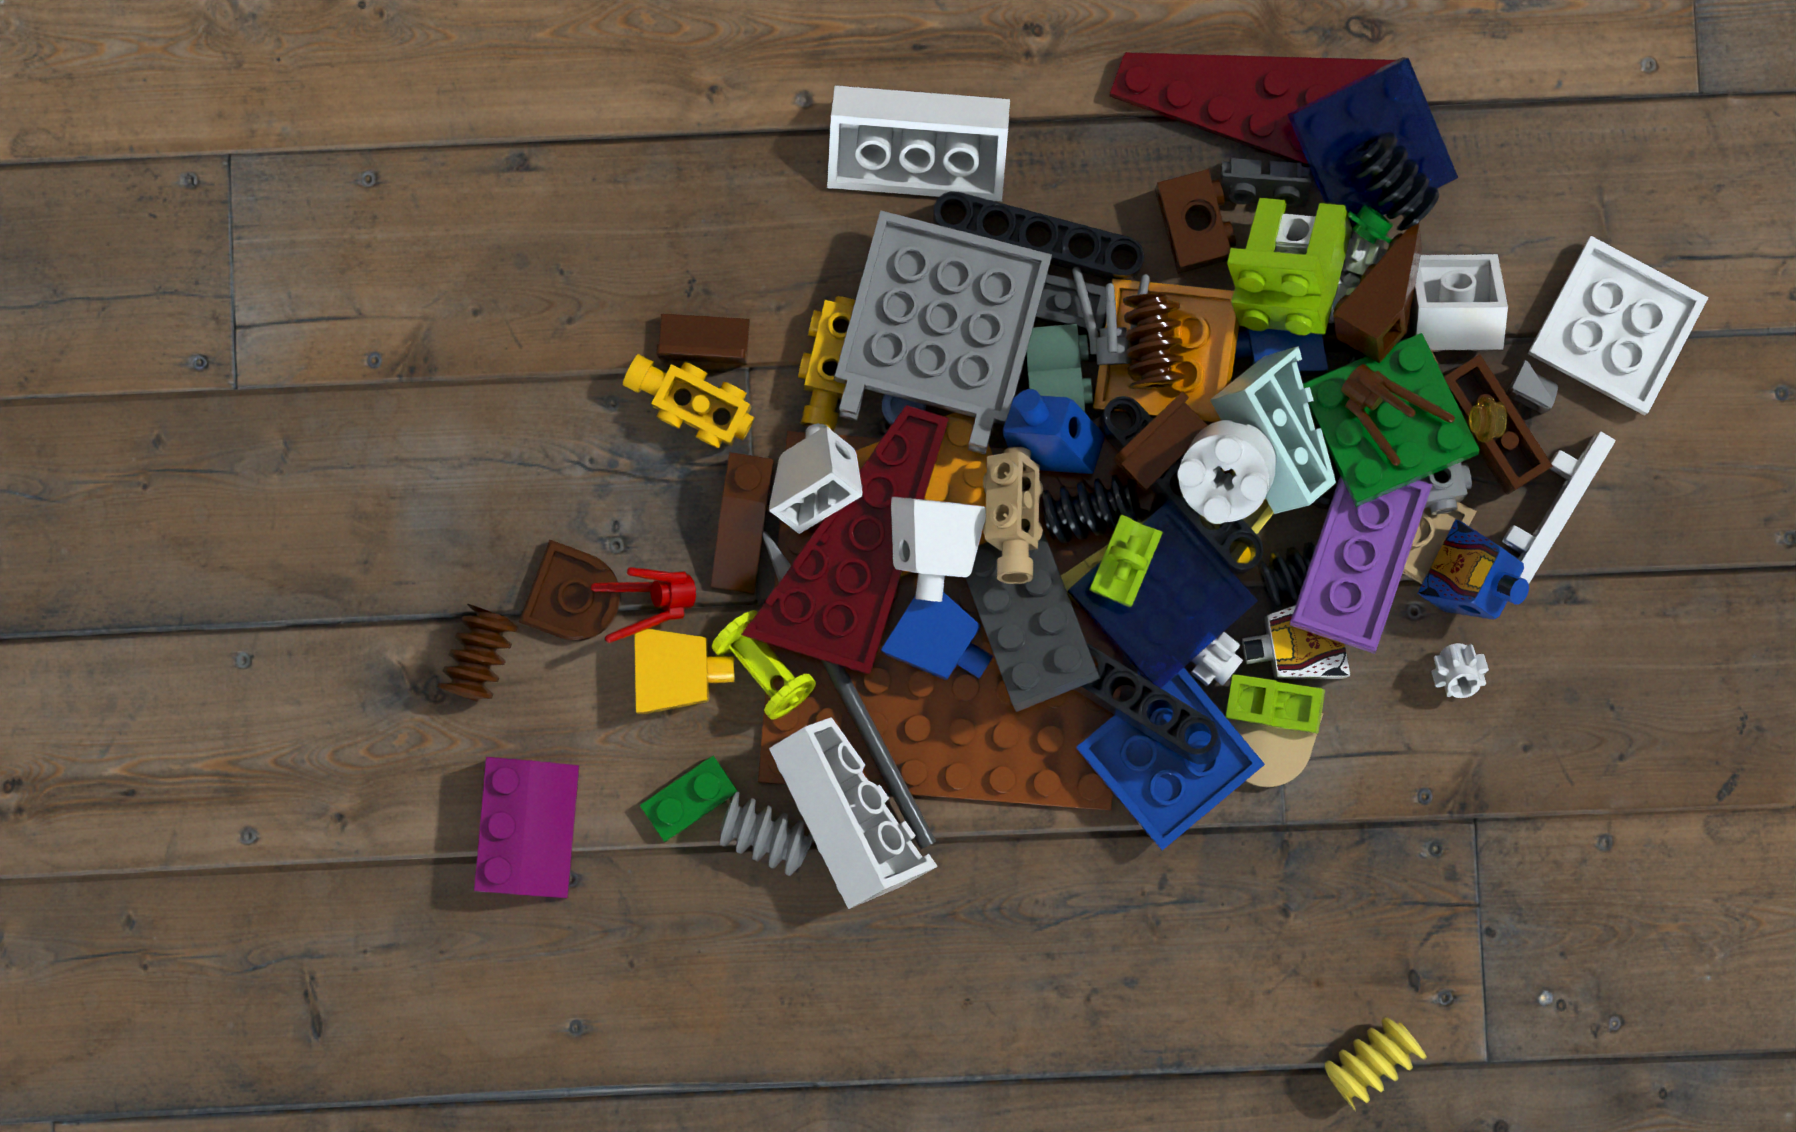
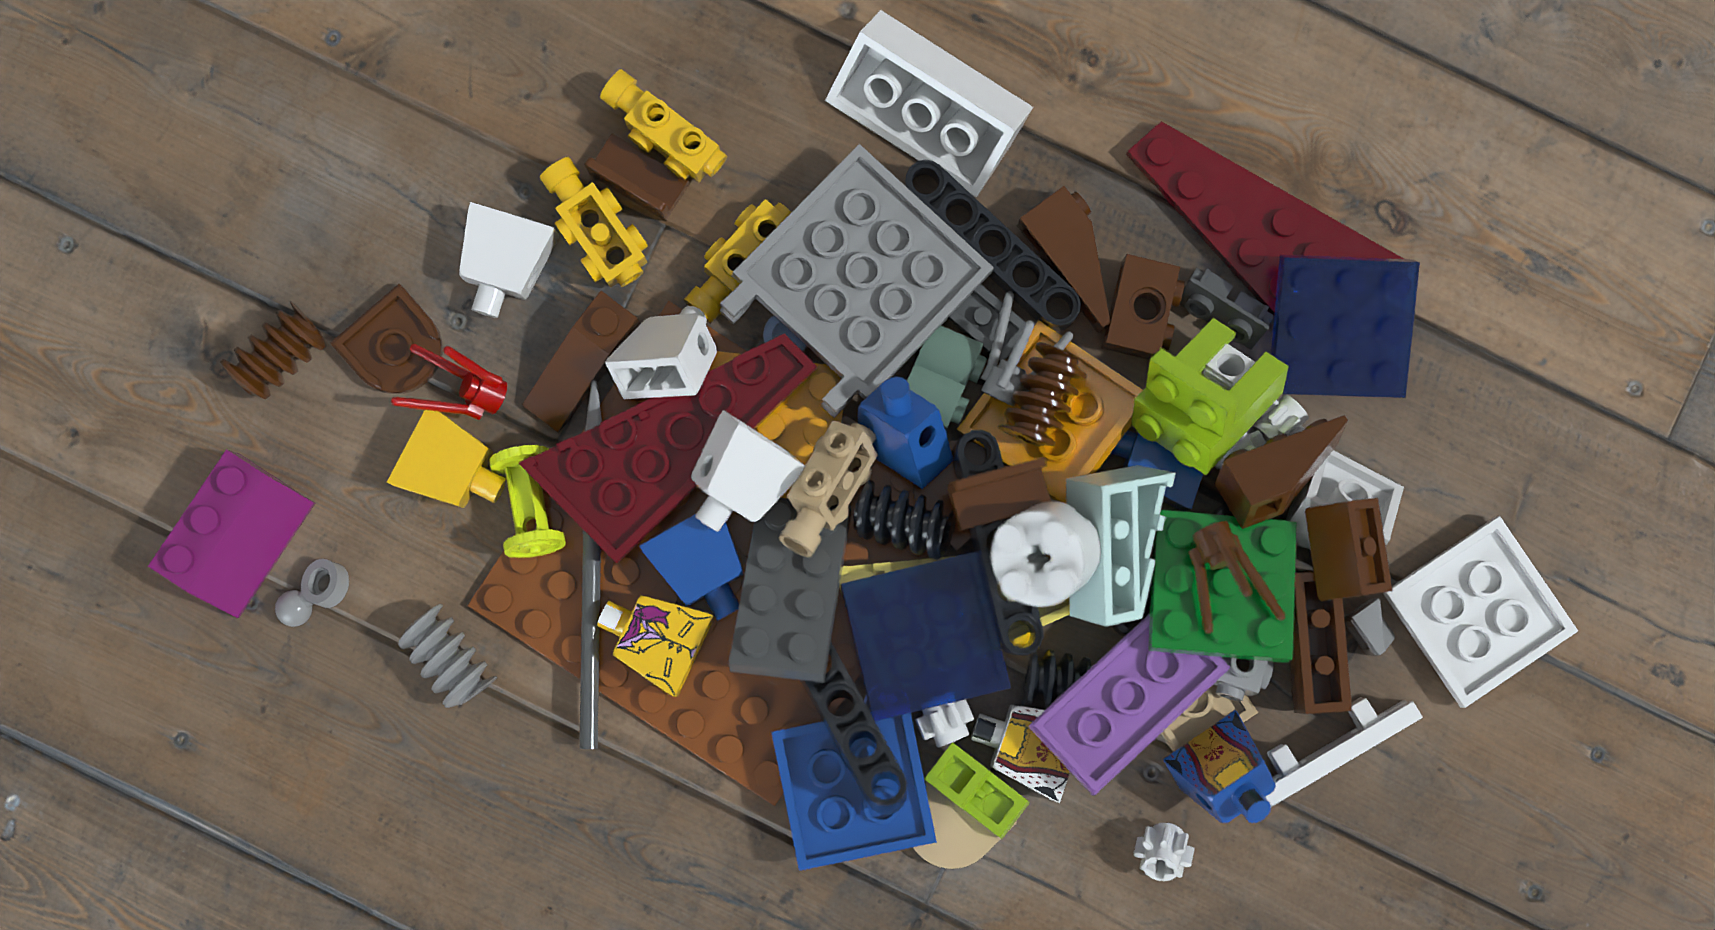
camera: 20 degrees right, 0 degrees up
(612, 862) = (322, 584): none -> light grey plate
(626, 468) = (502, 256): none -> white torso
(689, 798) = (396, 587): green plate -> none
(713, 291) = (668, 136): none -> yellow brick
(847, 814) = (526, 681): white wedge -> none
(937, 720) = (657, 639): none -> yellow torso
(1103, 202) = (1067, 244): none -> reddish brown slope
(1125, 561) = (906, 586): lime hips -> none
(1371, 224) = (1303, 397): green plate -> none
(1395, 177) = (1348, 366): black piece -> none
(1477, 332) = (1348, 549): none -> reddish brown panel
(1488, 419) = (1315, 635): clear yellow plate -> none

